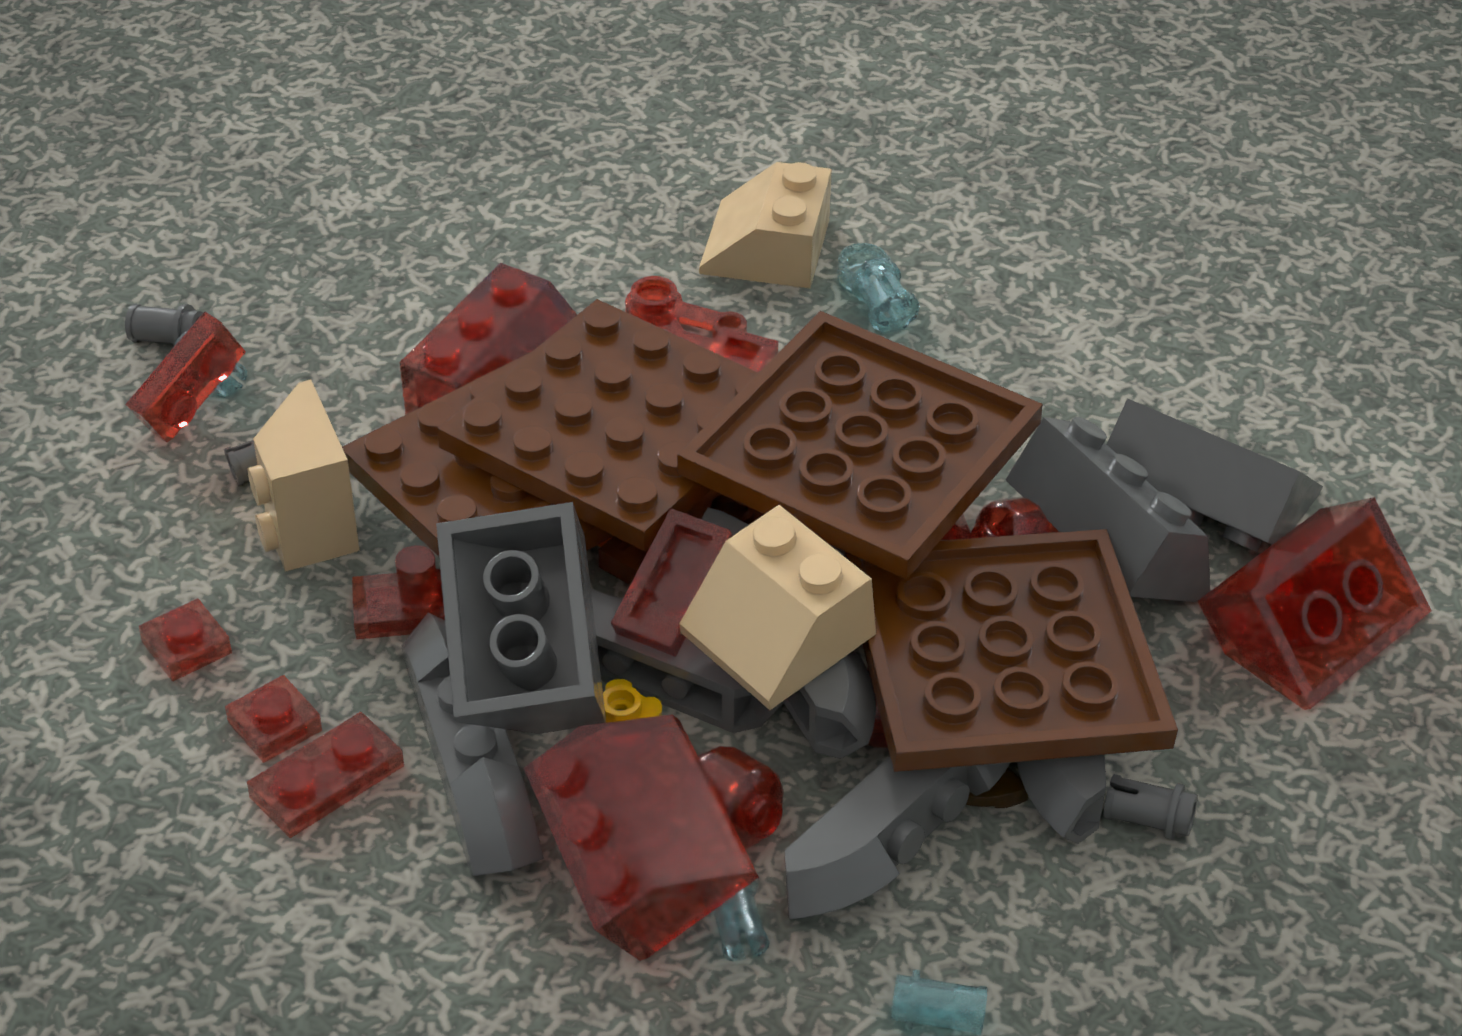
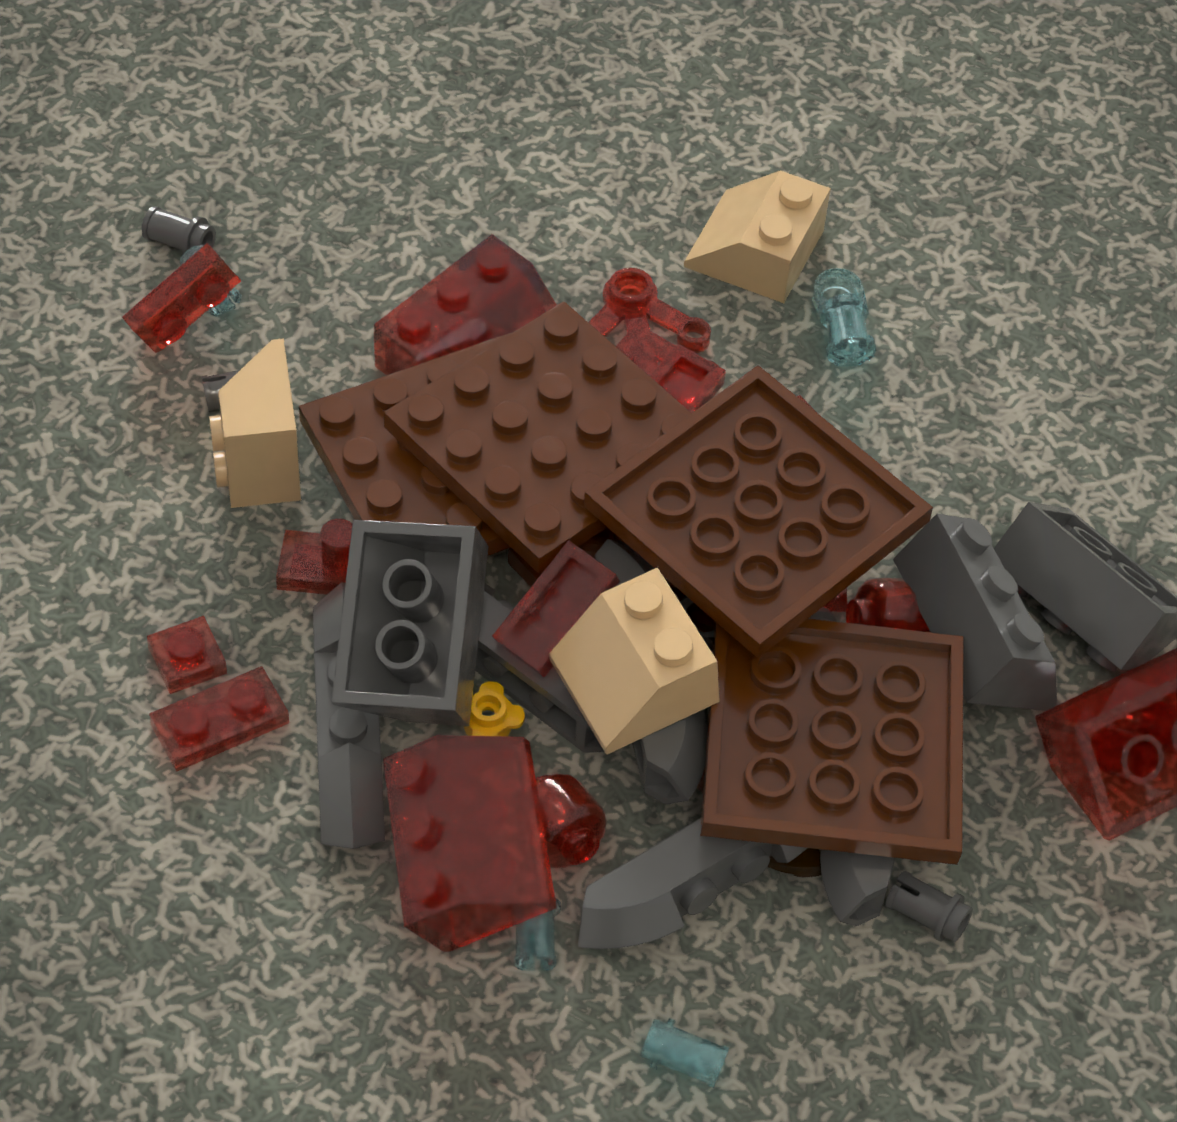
camera: 10 degrees right, 10 degrees up
(185, 639) = (128, 560): clear red plate -> none

